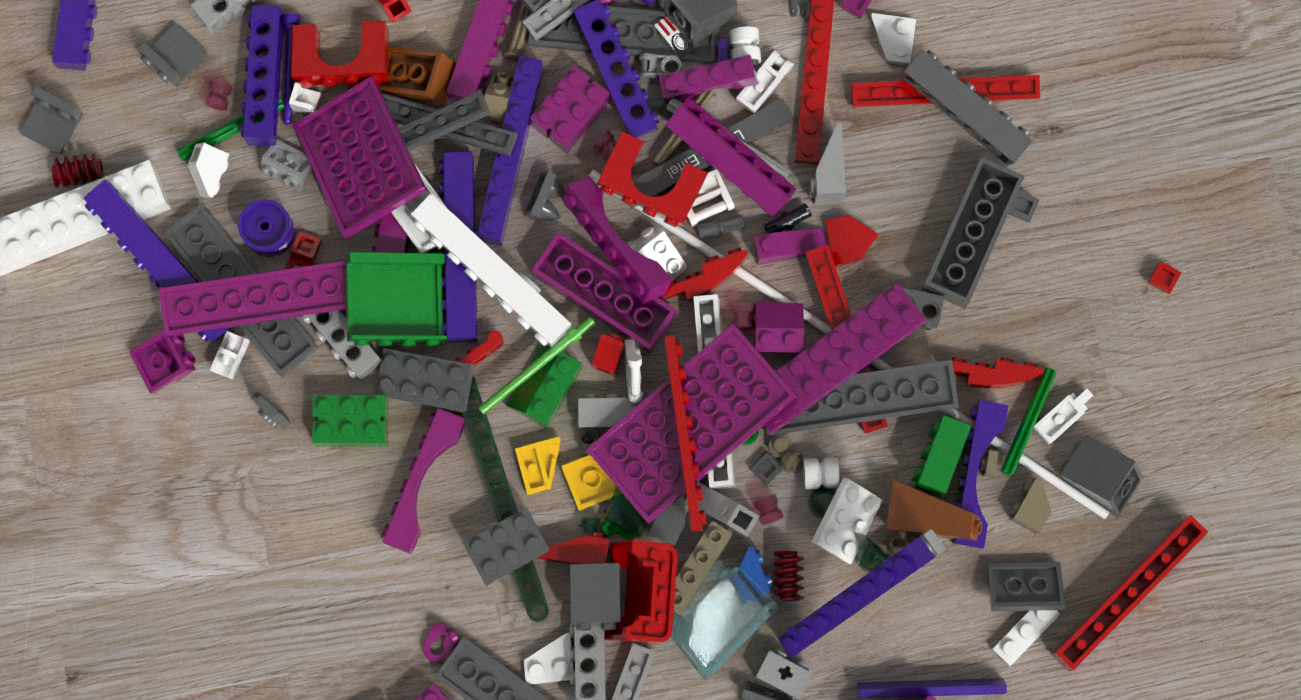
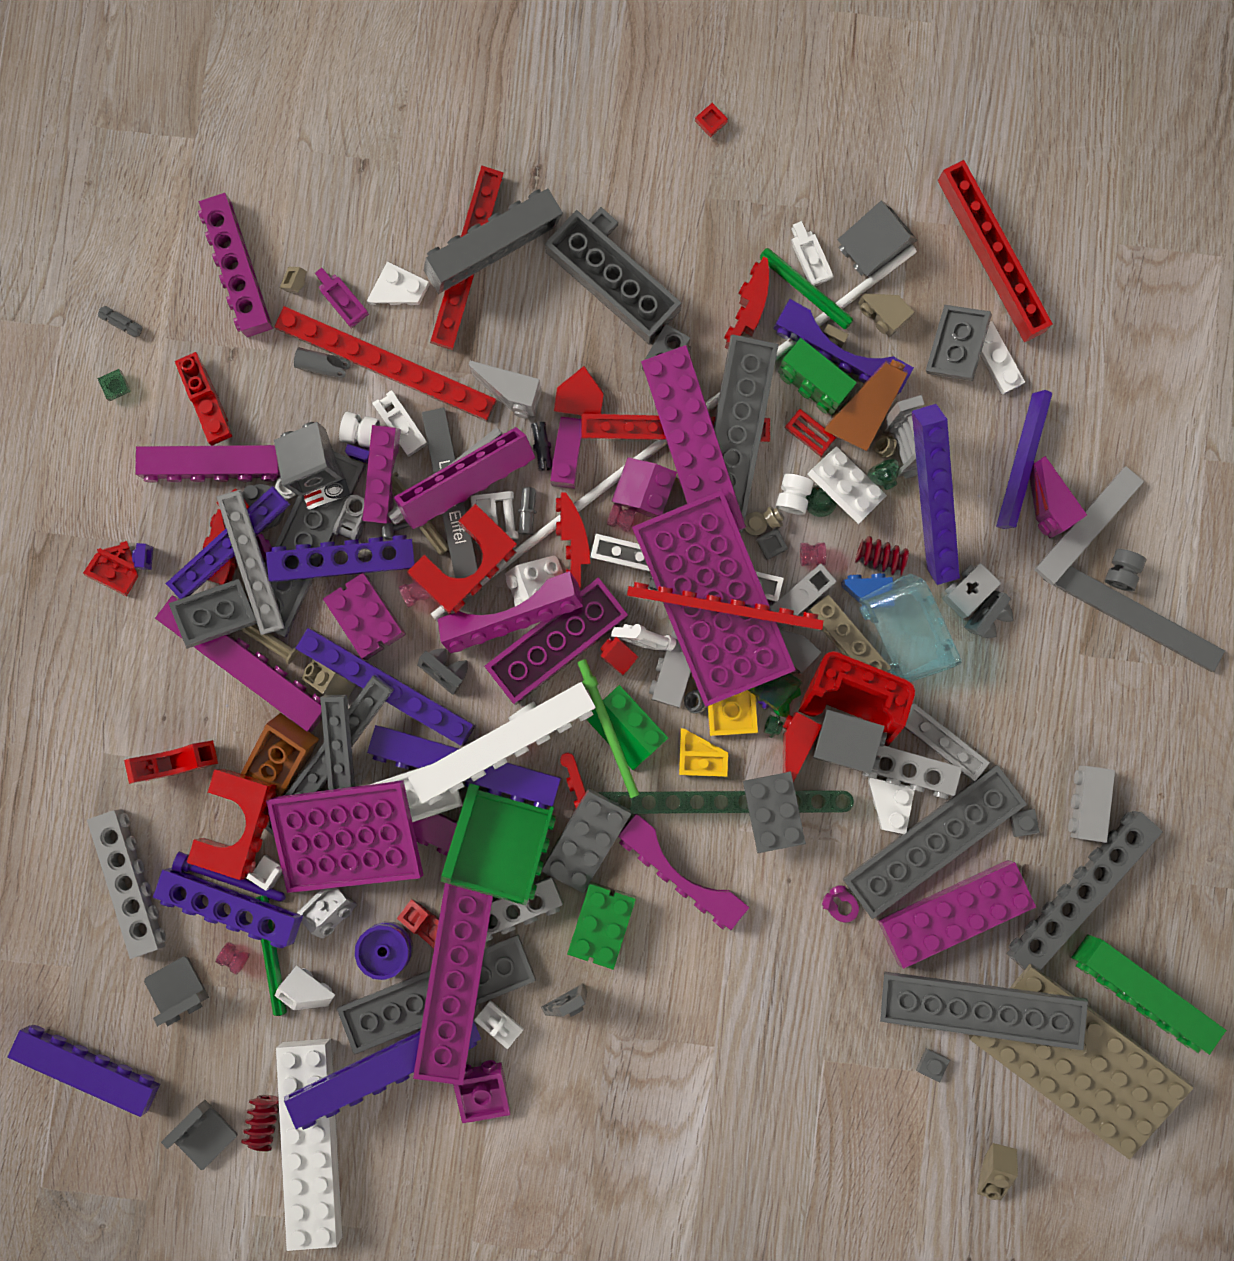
camera: 70 degrees left, 5 degrees up
(895, 452) = (825, 445): none -> red tile

